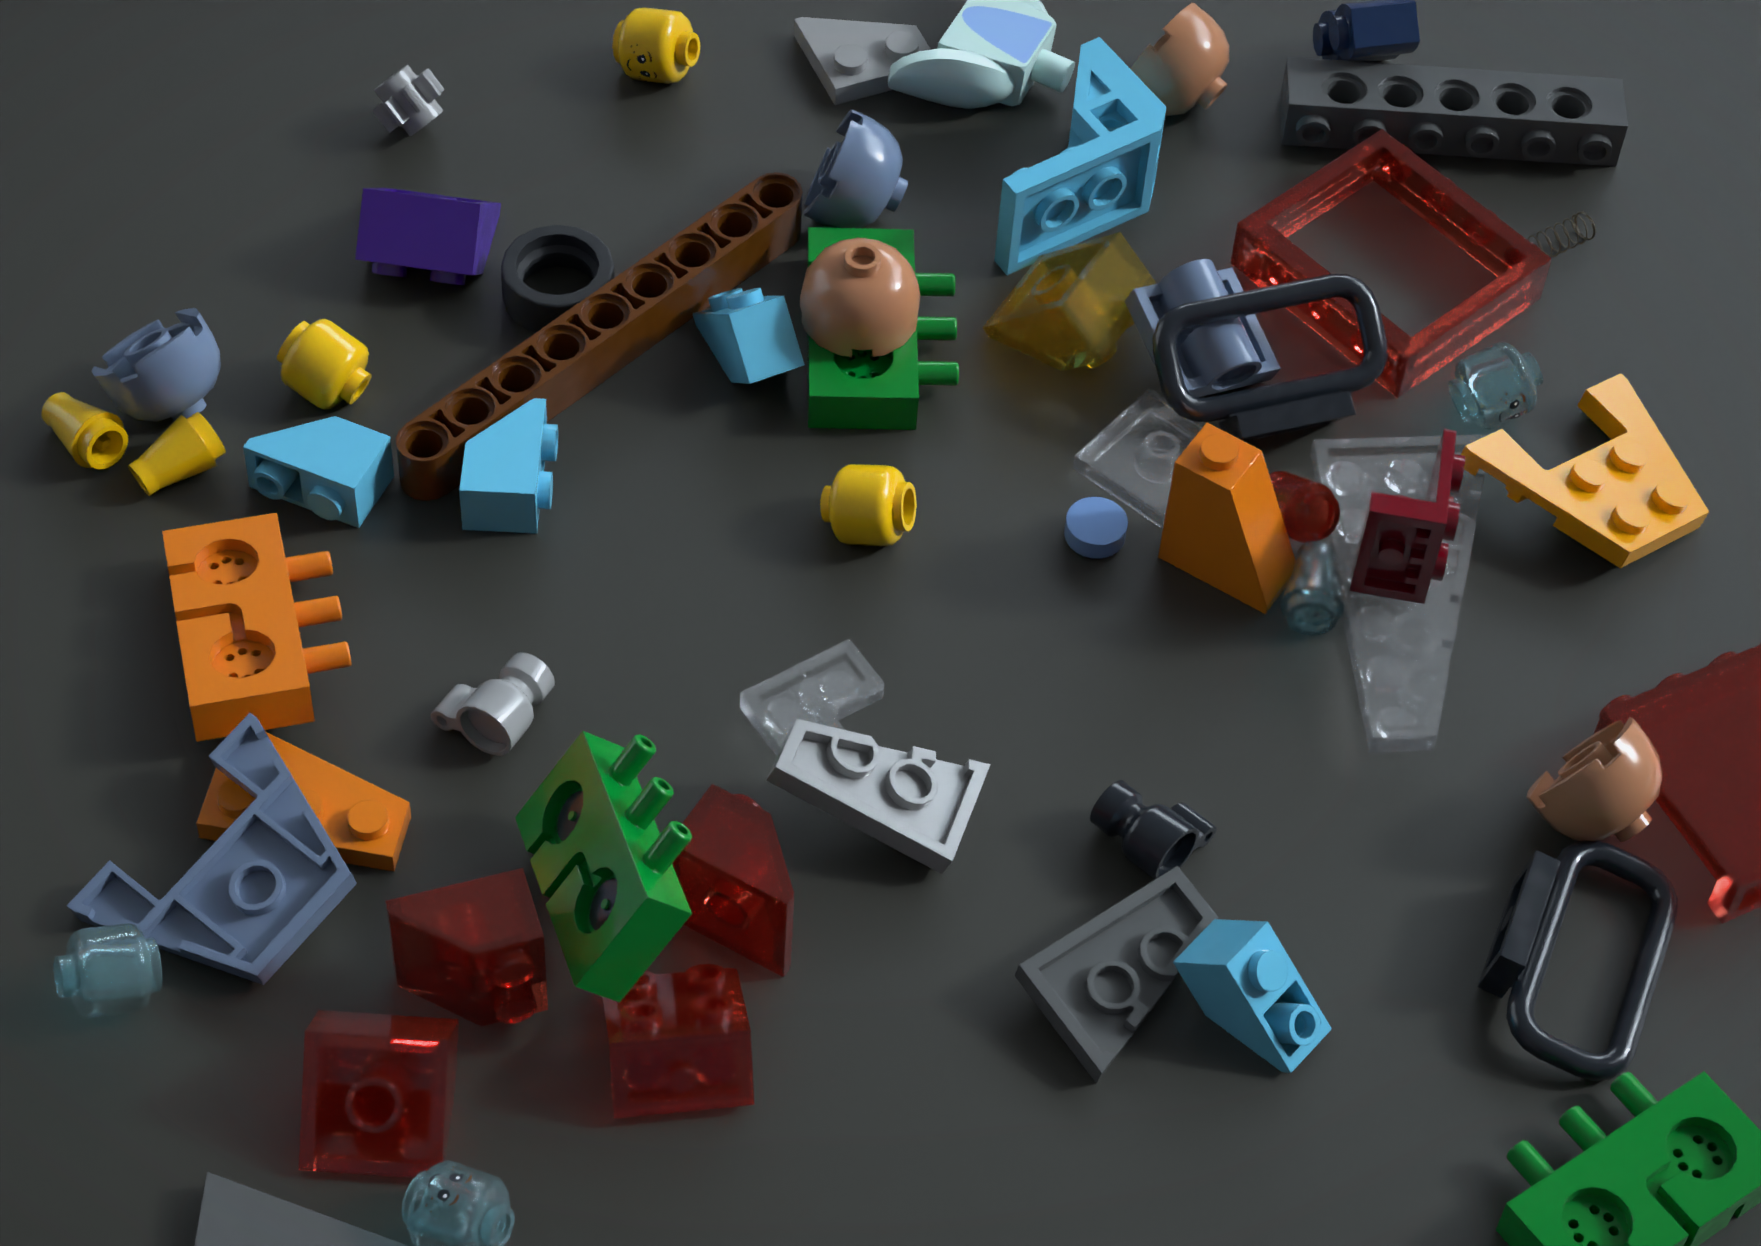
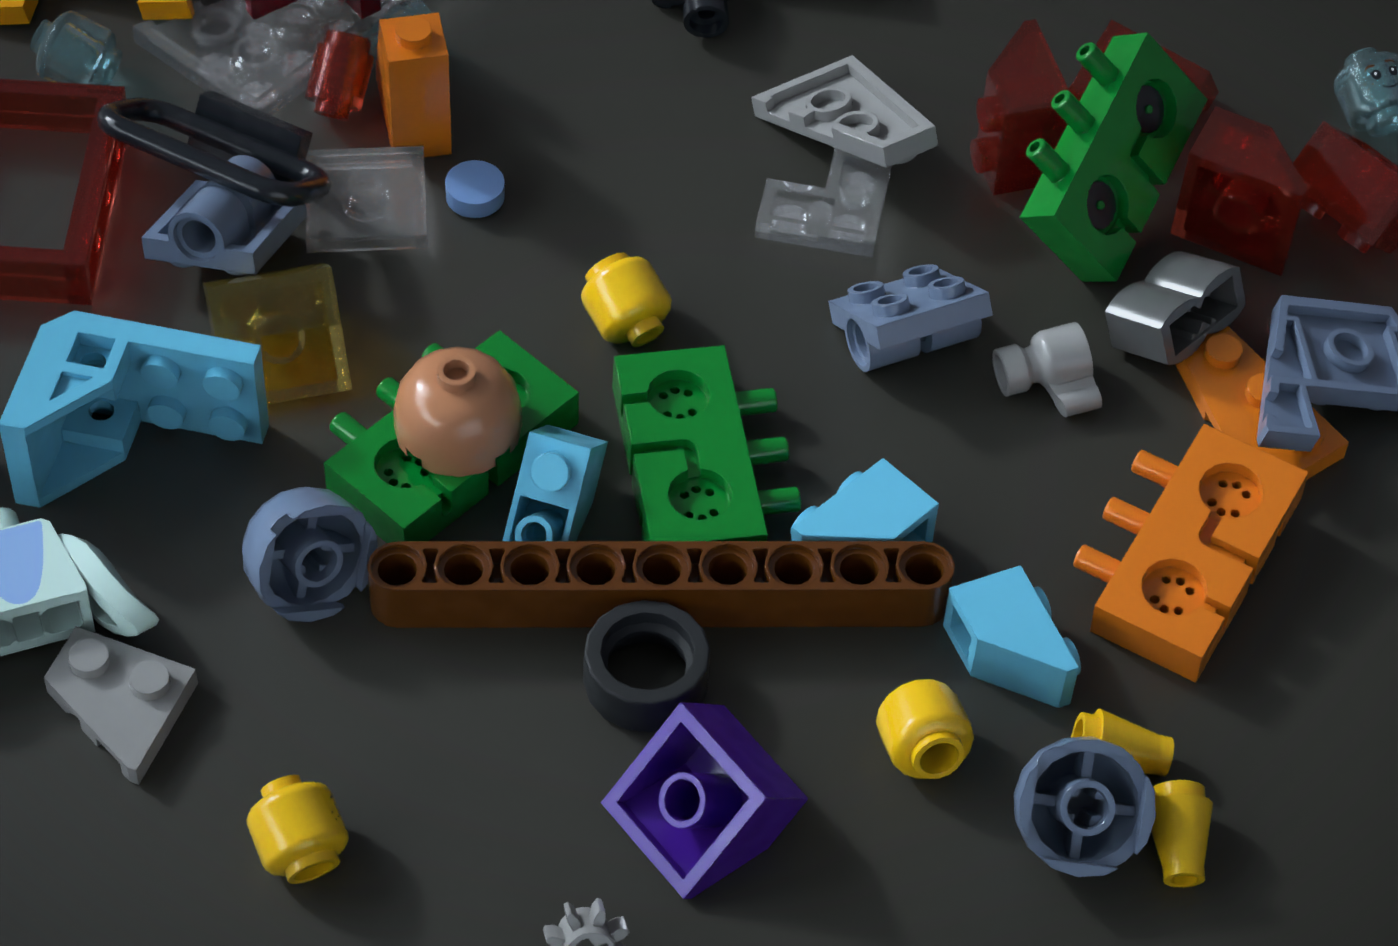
camera: 135 degrees left, 0 degrees up
(440, 815) = (1175, 307): none -> dark grey brick
(644, 649) = (909, 315): none -> sand blue plate
(687, 438) = (683, 432): none -> green piece

